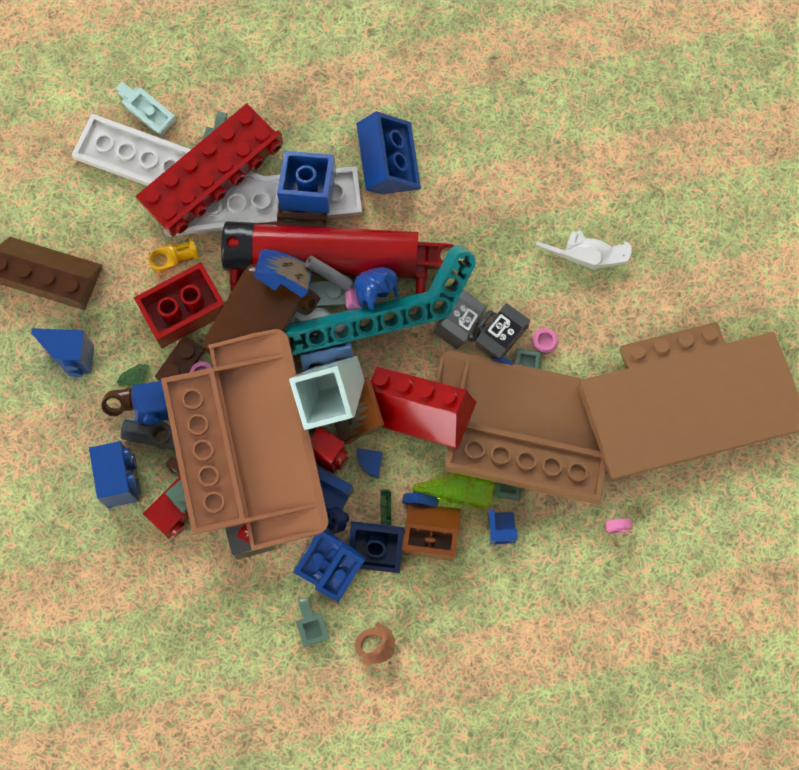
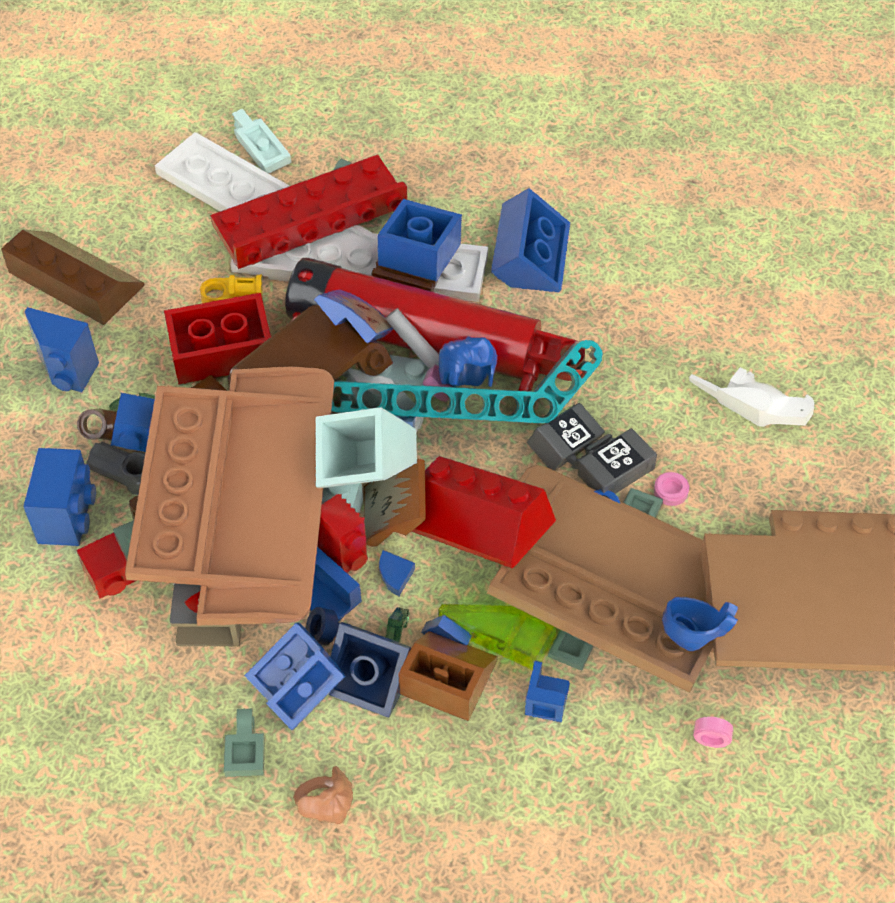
camera: 15 degrees right, 20 degrees down
(593, 457) = (695, 622): none -> blue piece

